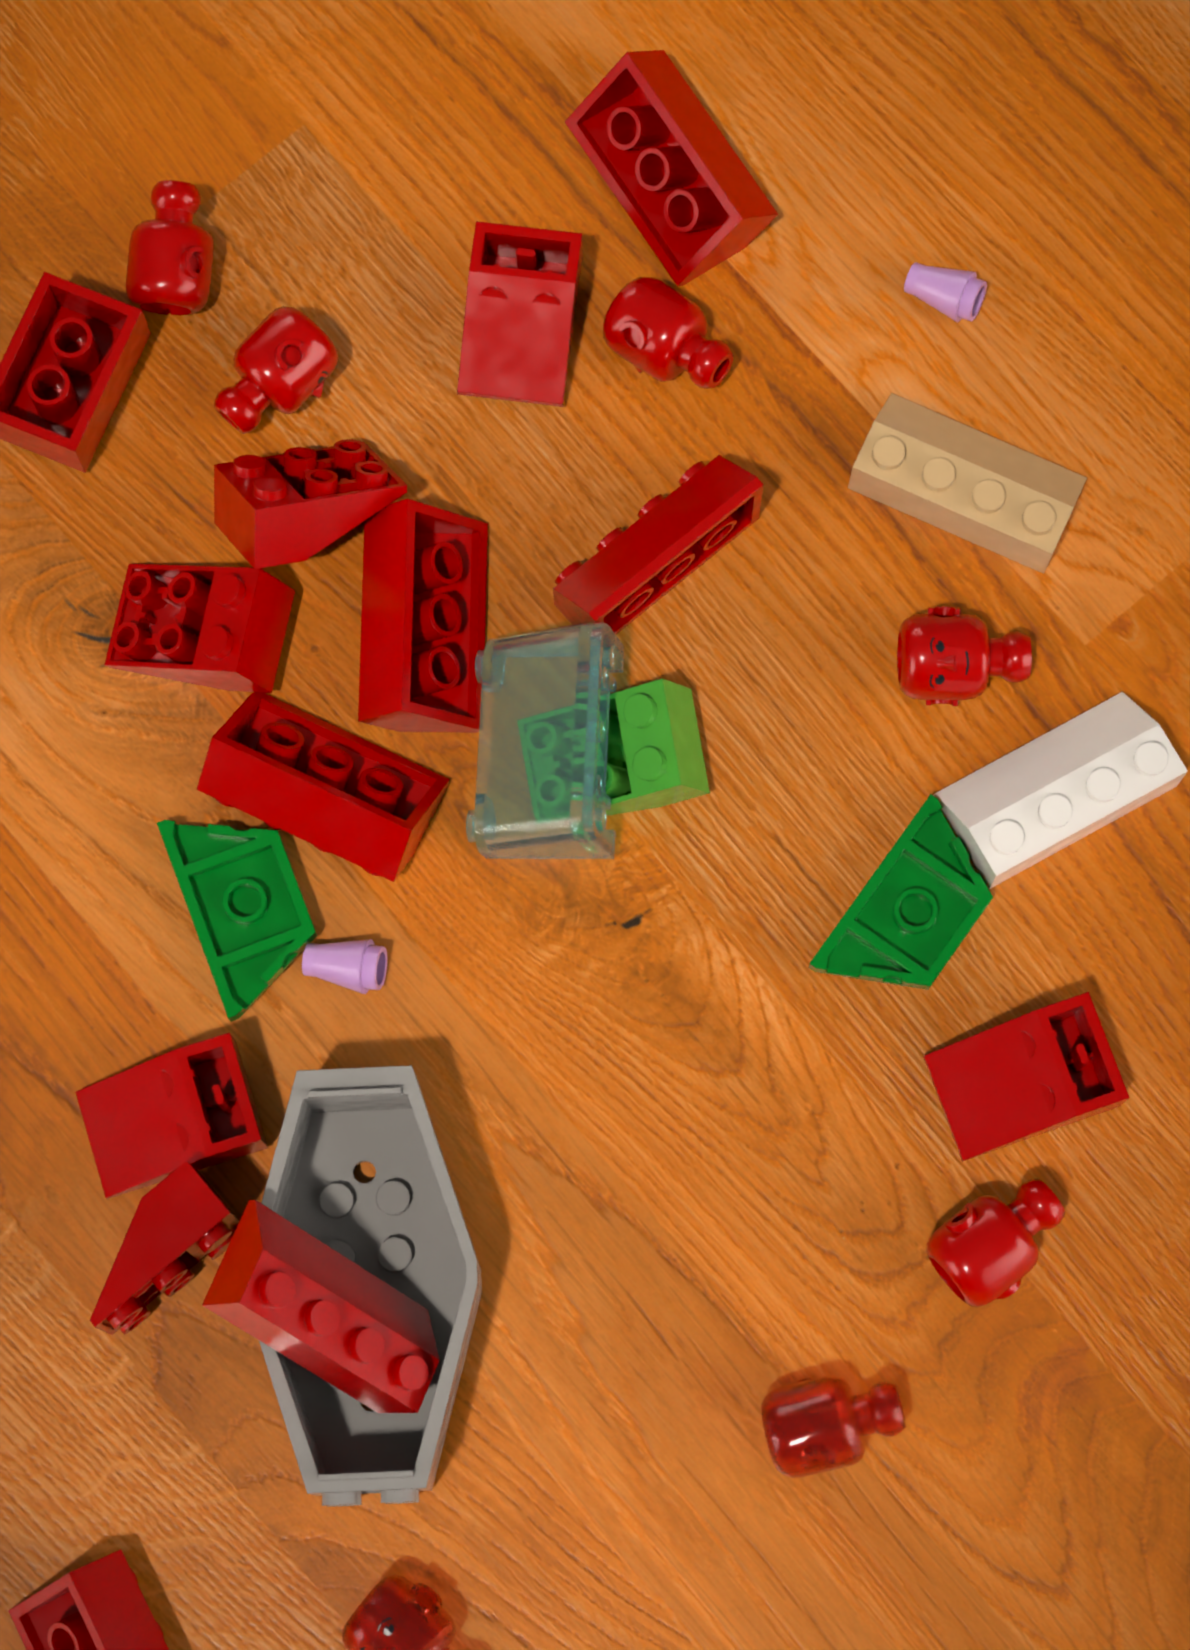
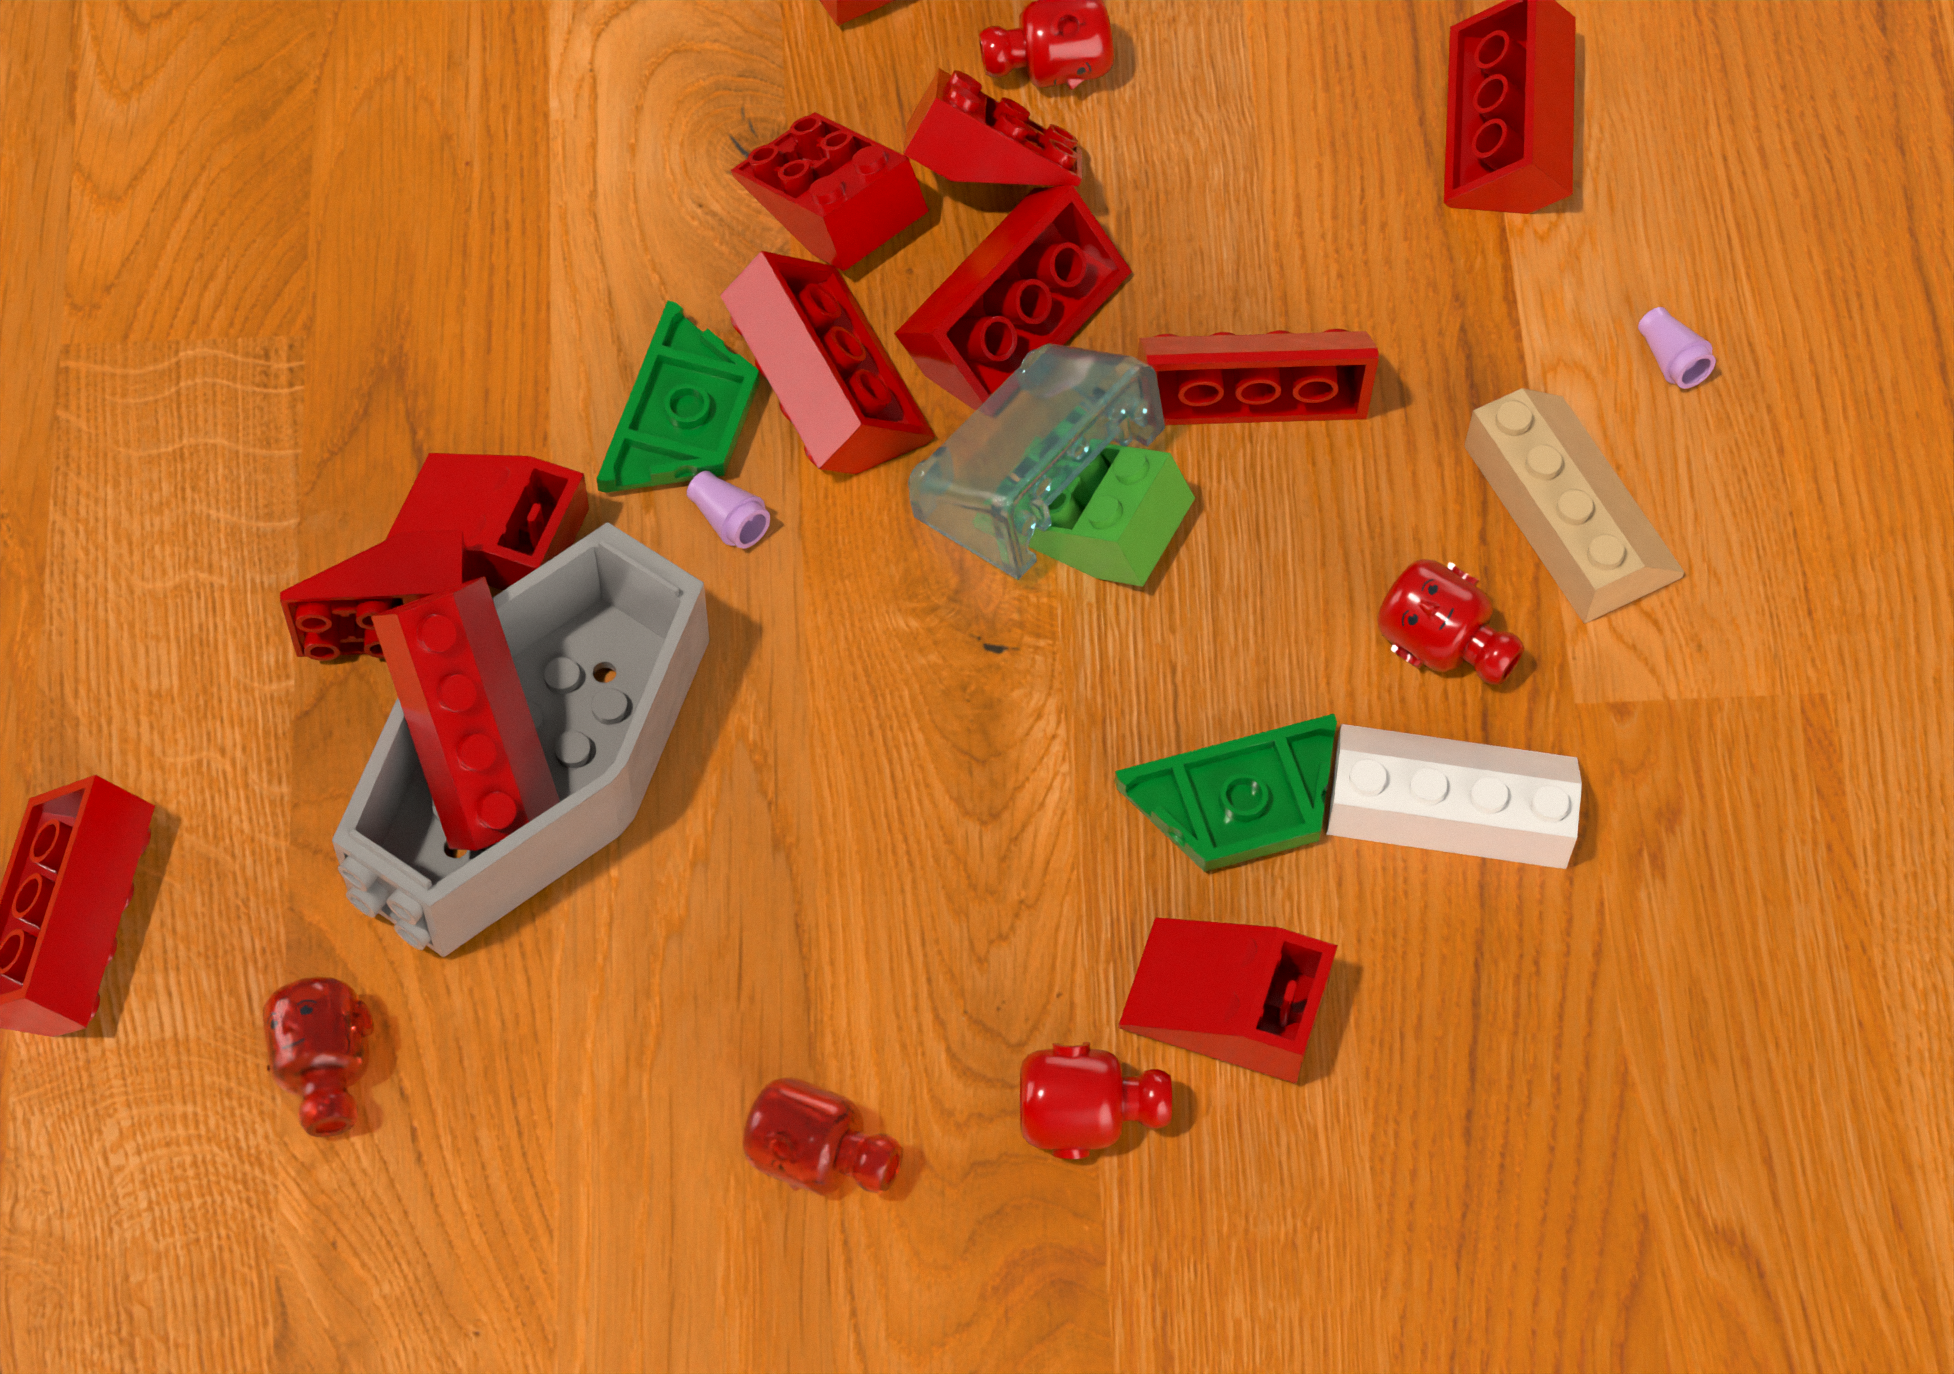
camera: 35 degrees right, 15 degrees down
(519, 313) = (1290, 128): red slope -> none
(664, 334) = (1398, 220): red piece -> none

